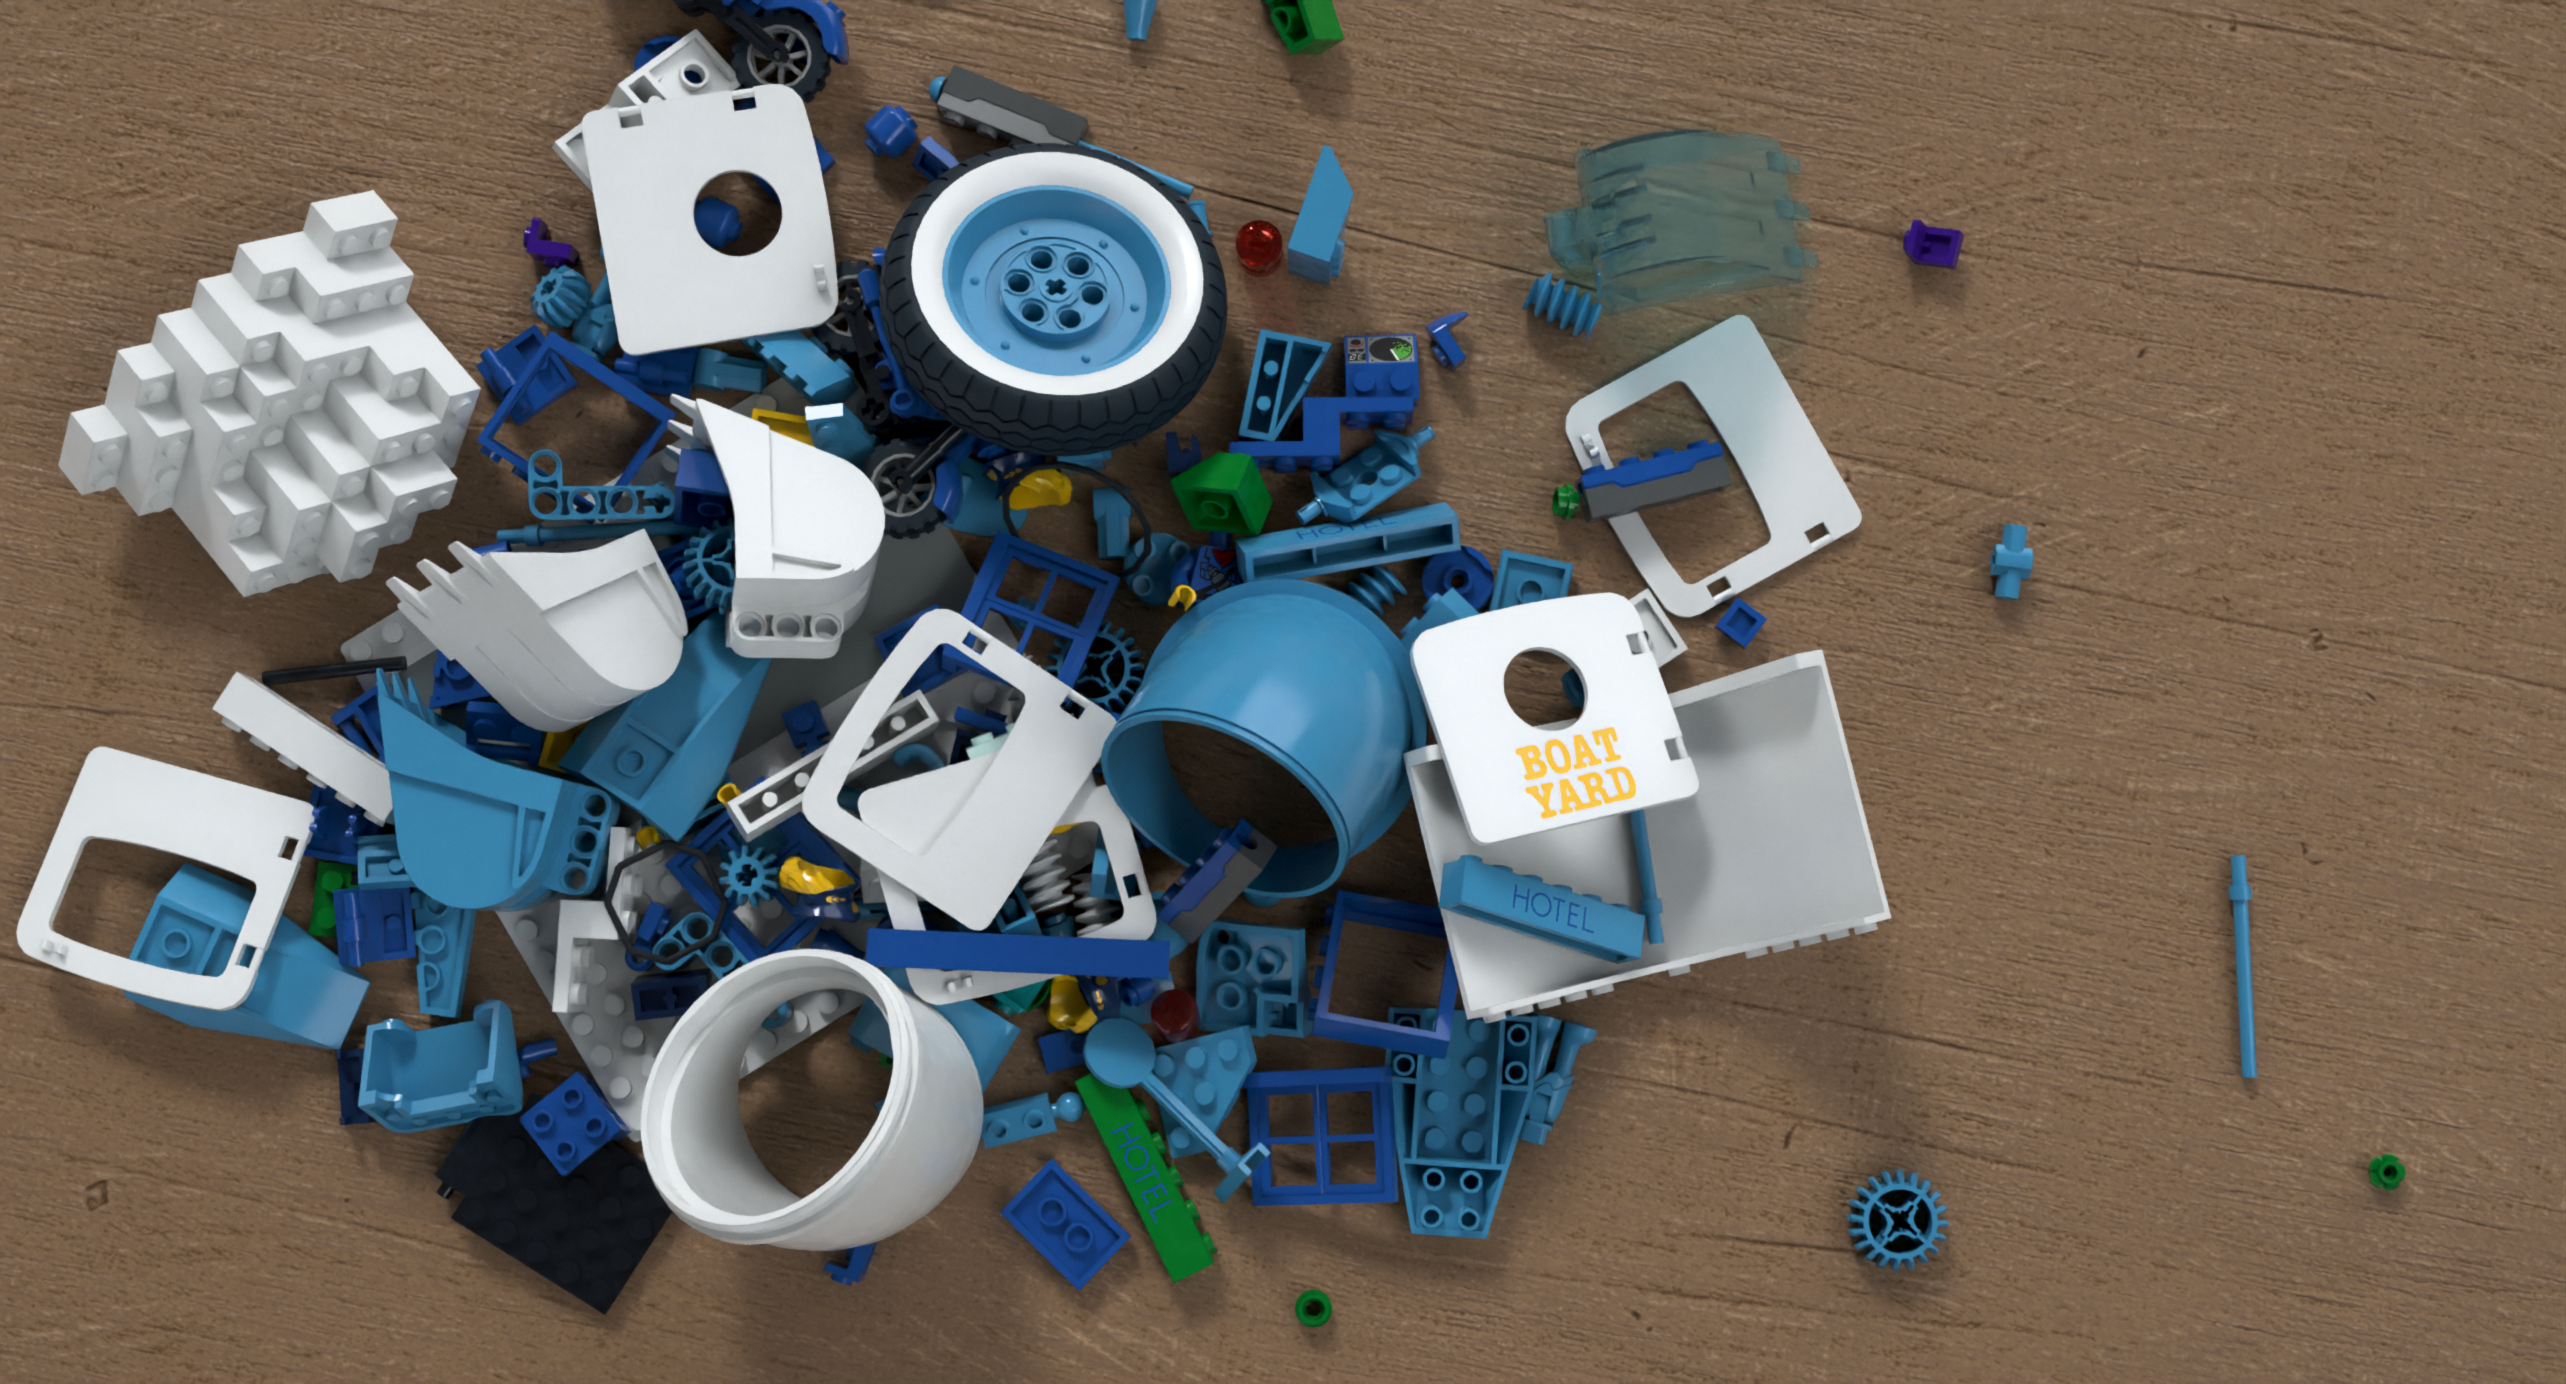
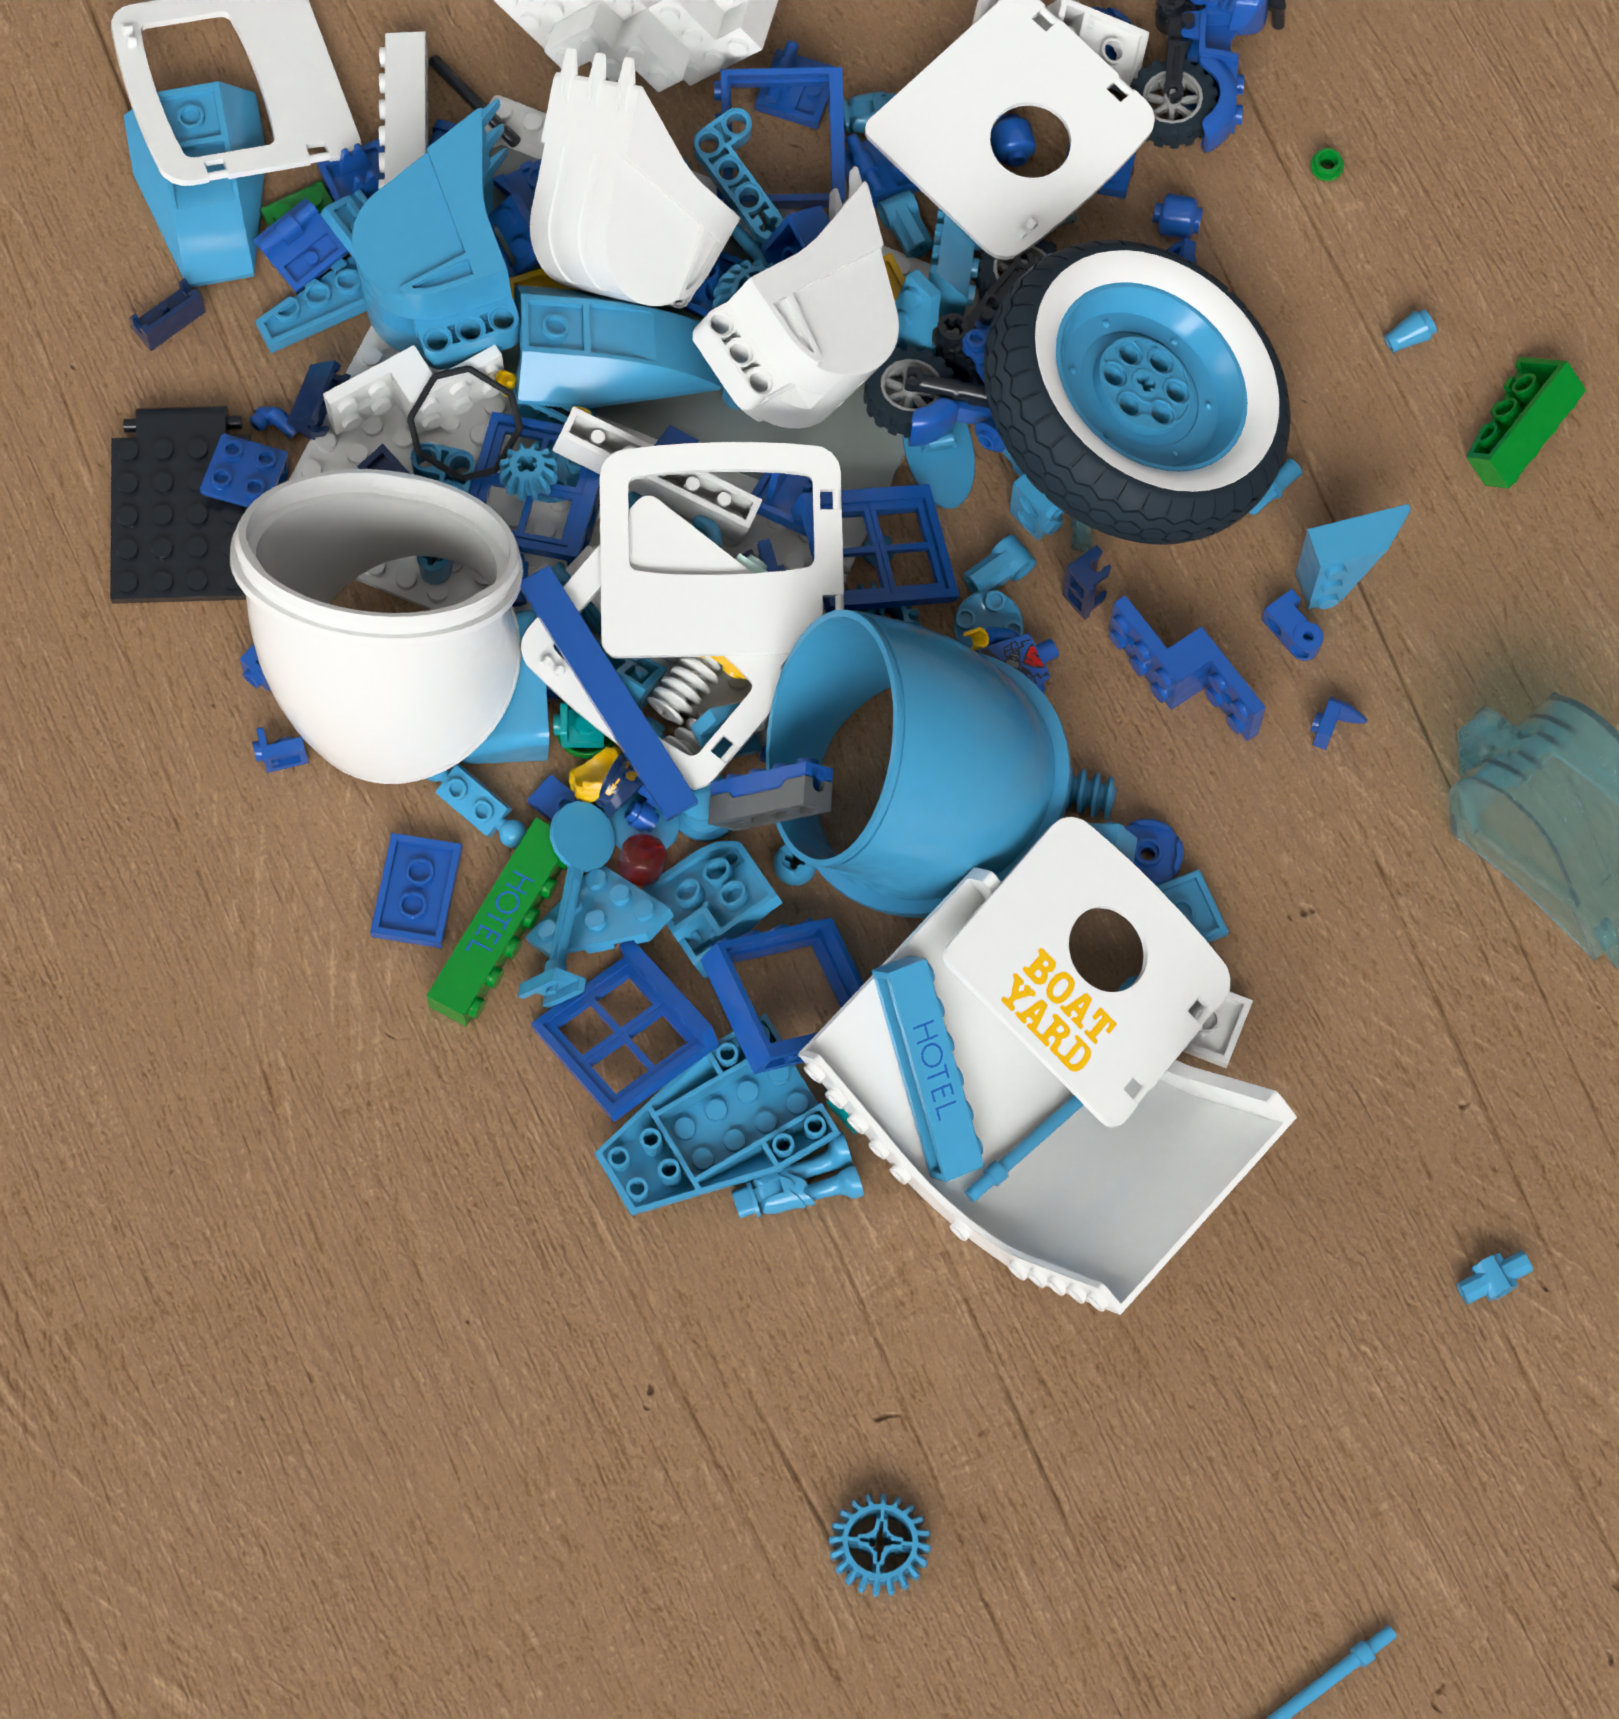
camera: 50 degrees right, 15 degrees down
(441, 1072) = (215, 364): dark azure windscreen -> none
(535, 1010) = (310, 406): none -> dark blue hinge
(552, 253) = (901, 41): dark purple bracket -> none
(560, 297) = (873, 70): dark azure gear -> none
(654, 925) = (441, 433): blue plate -> none
(820, 891) = (552, 524): piece -> none
(1017, 116) = (1258, 285): piece -> none
(1034, 490) = (984, 478): piece -> none
(1090, 471) = (1025, 519): black piece -> none
(1224, 494) = (1081, 621): green slope -> none
(1259, 248) = (1291, 530): clear red wheel -> none
(1278, 382) = (1210, 603): dark azure wedge -> none
(1313, 1320) = (475, 1115): green plate -> none
(1342, 313) = (1292, 628): none -> blue leg
(1349, 546) = (1115, 743): dark azure brick -> none
(1381, 366) = (1276, 684): blue slope -> none
(1388, 462) = (1175, 728): dark azure plate -> none
(1563, 305) = (1426, 786): dark azure piece -> none
(1565, 501) = (1274, 893): green plate -> none
(1652, 482) = (1341, 947): piece -> none
(1740, 623) = (1286, 1086): blue plate -> none
(1765, 434) = (1449, 1015): white door -> none

